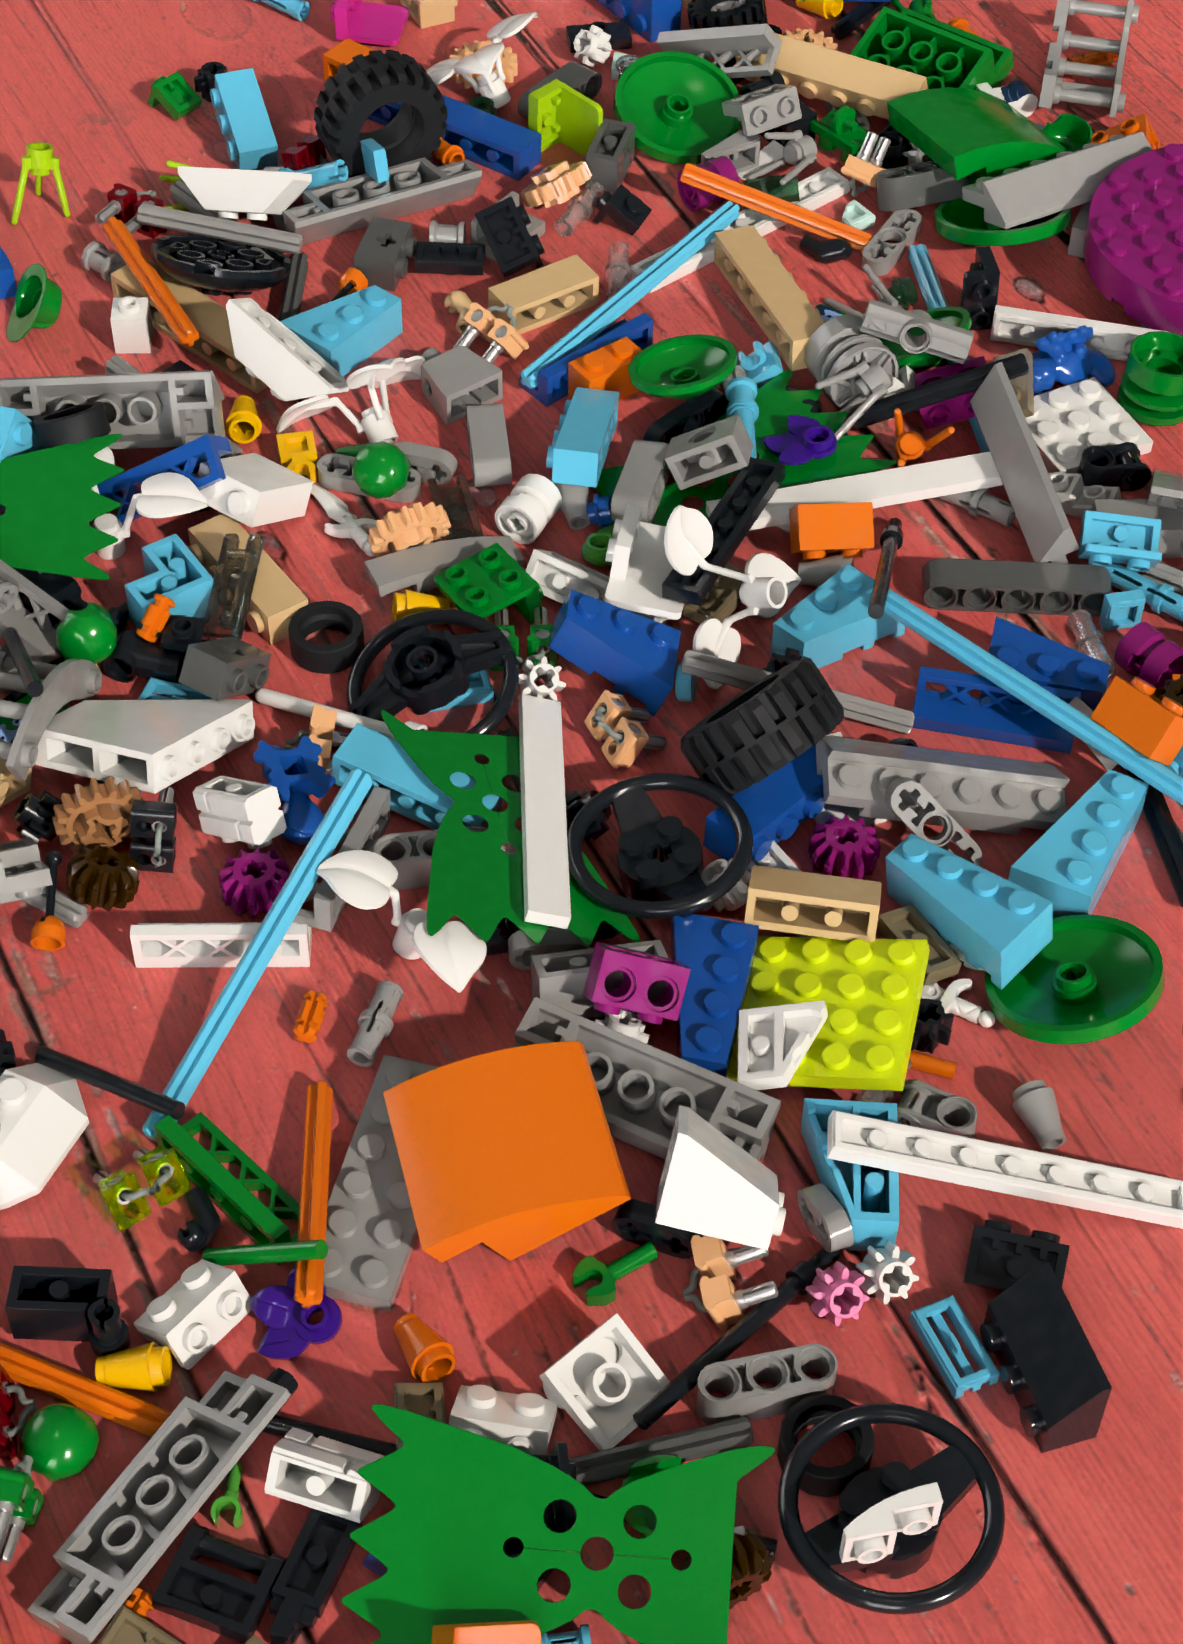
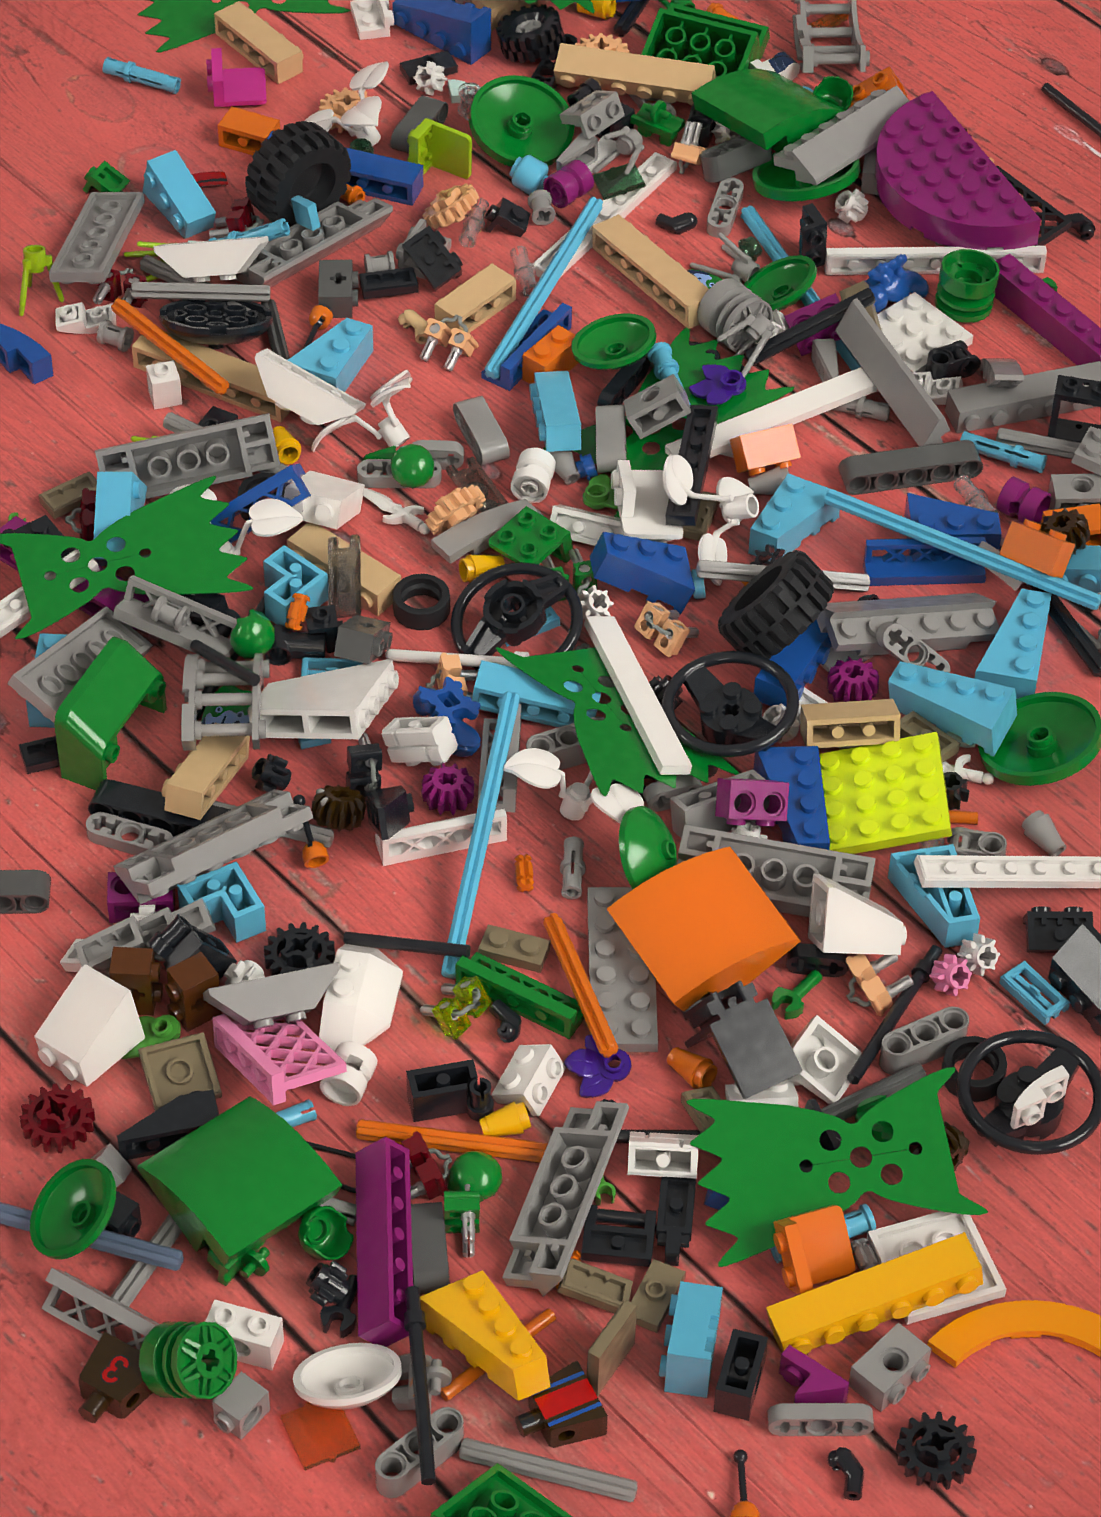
camera: 15 degrees left, 0 degrees up
(35, 303) = (76, 381): green piece -> none
(72, 236) = (78, 320): none -> white slope
(72, 425) = (170, 475): black tyre -> none
(95, 815) = (319, 763): medium nougat gear -> none
(127, 151) = (97, 237): none -> light grey plate
(157, 896) = (388, 810): none -> black slope
(206, 78) = (133, 163): black gear -> none
(254, 1118) = (514, 948): none -> dark tan plate
(266, 1253) = (569, 1028): green bar -> none
(291, 113) = (210, 178): none -> red sticker
(298, 452) = (338, 463): yellow plate -> none
(459, 380) = (438, 384): light grey torso -> none
(465, 1013) = (645, 845): none -> green dish
(498, 1331) = (745, 1036): none -> piece
(611, 153) = (484, 171): dark grey brick -> none
(663, 165) = (528, 174): none -> medium azure head
(667, 205) = (540, 203): none -> light grey bush
(725, 43) = (545, 62): light grey fence -> none
(762, 363) = (666, 326): medium azure tile -> none
(773, 206) = (629, 195): orange axle -> none
(775, 1042) = (858, 820): white wing -> none
(825, 1217) = (927, 928): light grey beam -> none
(858, 216) = (690, 192): light aqua tile -> none
(890, 541) = (809, 450): black bar -> none
(893, 325) = (799, 285): light grey piece -> none
(910, 444) = (798, 372): orange plant -> none
(954, 444) = (825, 358): none -> light grey slope
(1047, 264) = (851, 206): none -> white gear
(1120, 539) = (976, 418): medium azure bracket -> none
(1122, 609) = (991, 470): medium azure tile -> none

